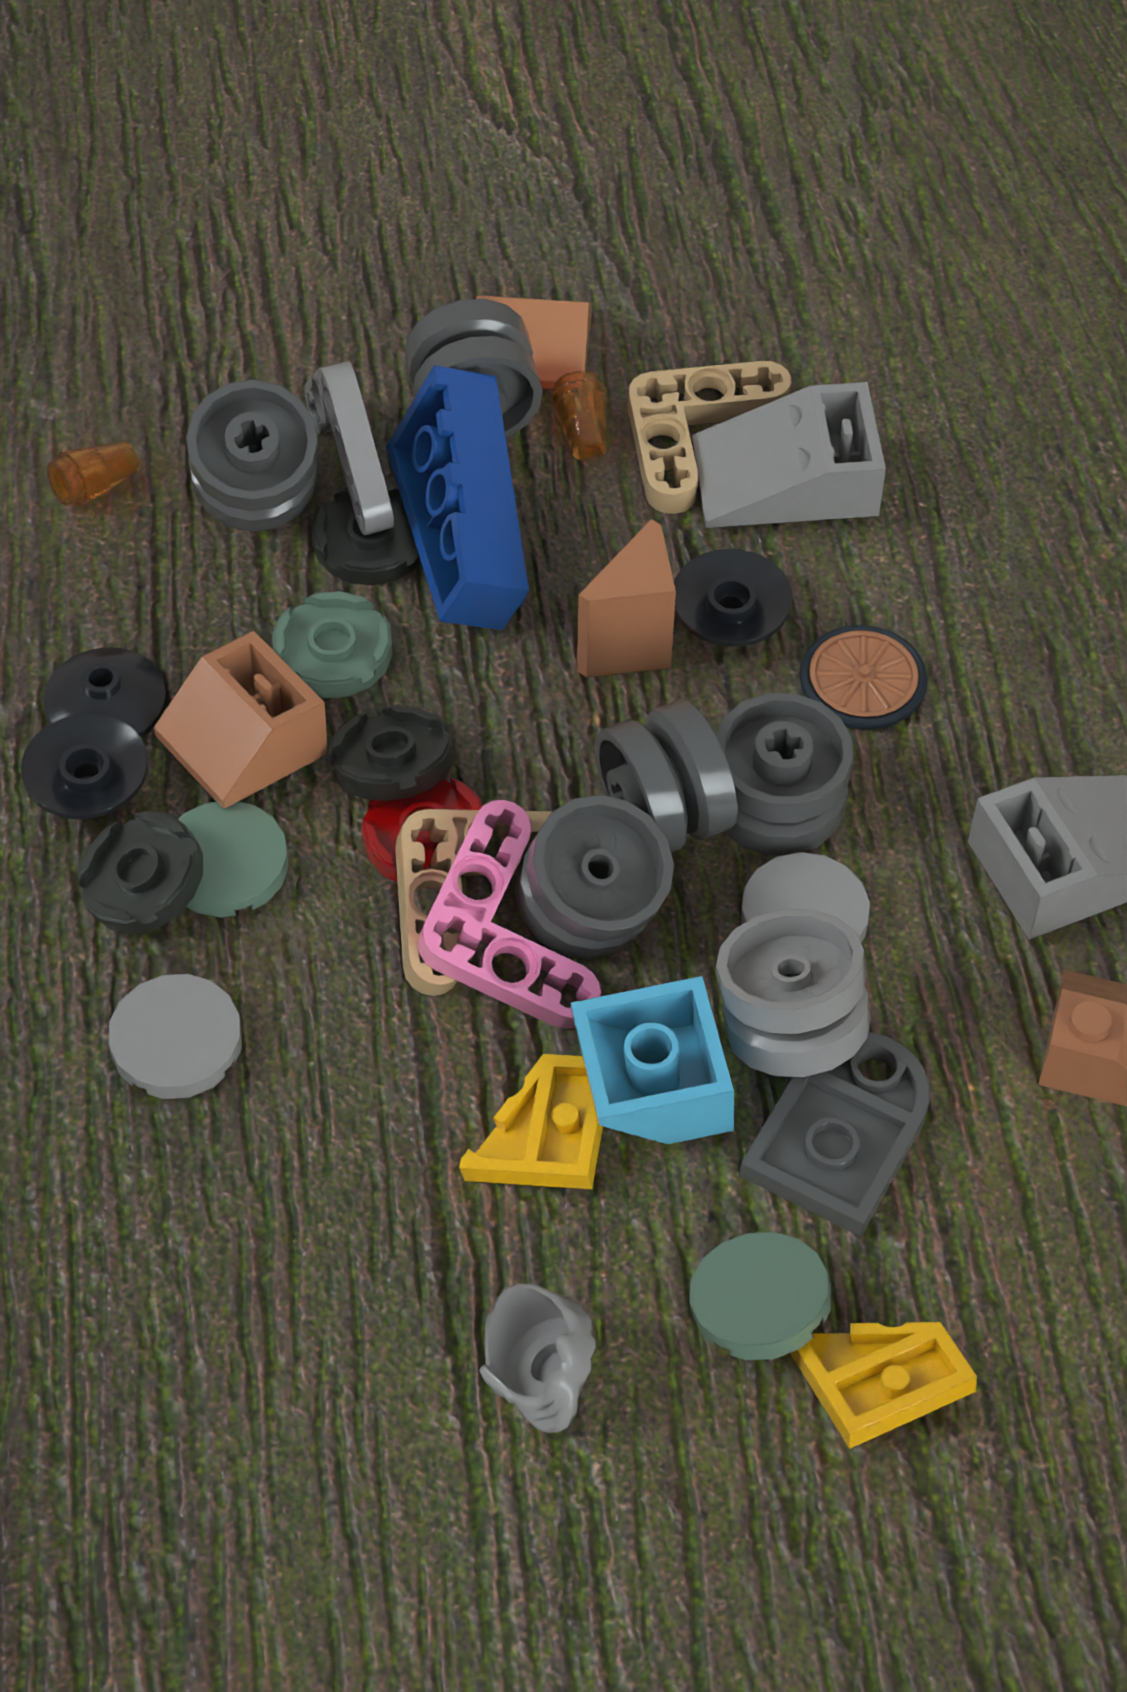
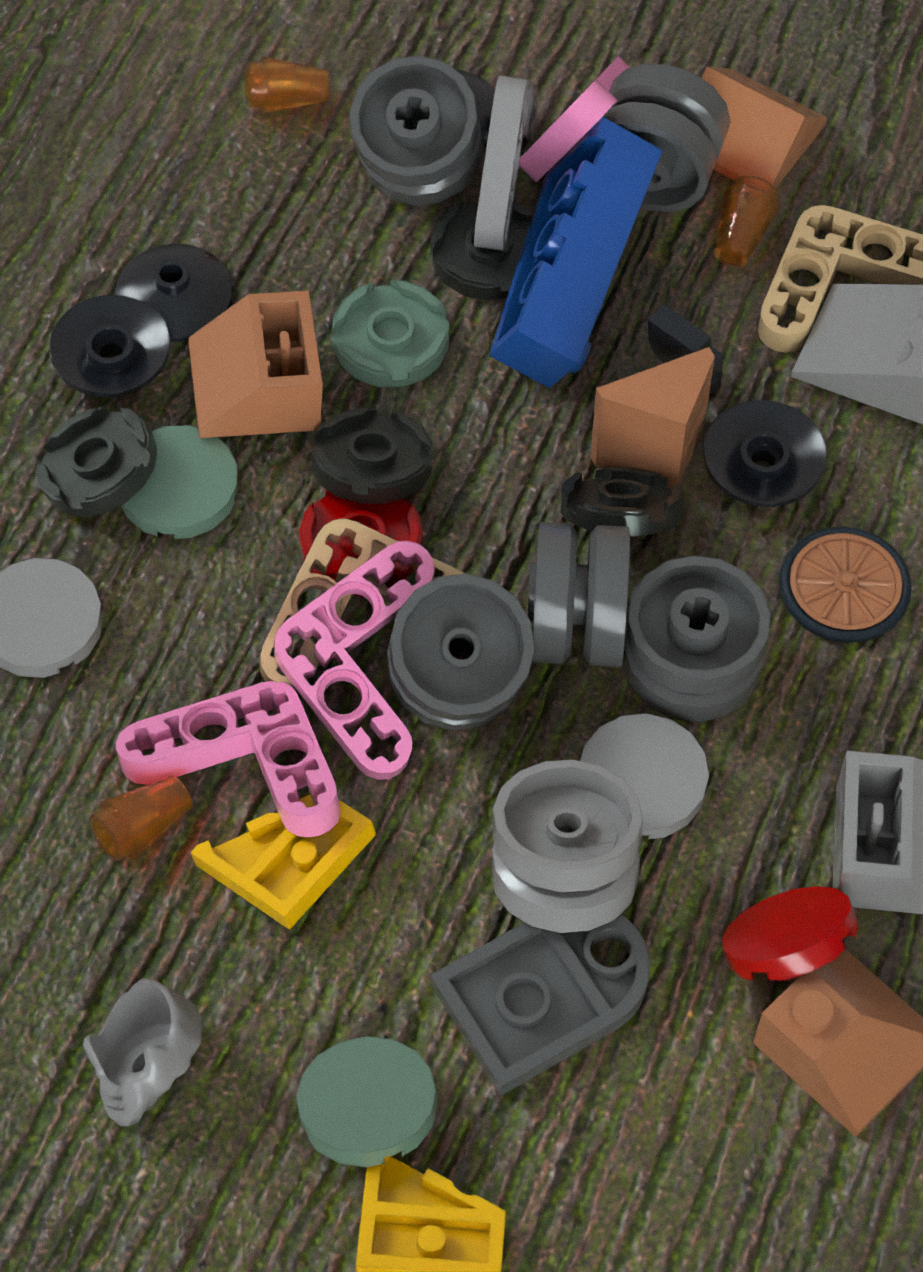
camera: 30 degrees right, 5 degrees up
(392, 1162) = (139, 817): none -> clear orange cone
(396, 379) = (572, 123): none -> bright pink beam
(461, 1022) = (261, 735): none -> bright pink beam
(609, 529) = (676, 337): none -> black slope
(640, 686) = (623, 498): none -> pearl dark grey tile
(656, 1062) = (404, 846): medium azure slope -> none
(1022, 972) = (790, 933): none -> red tile

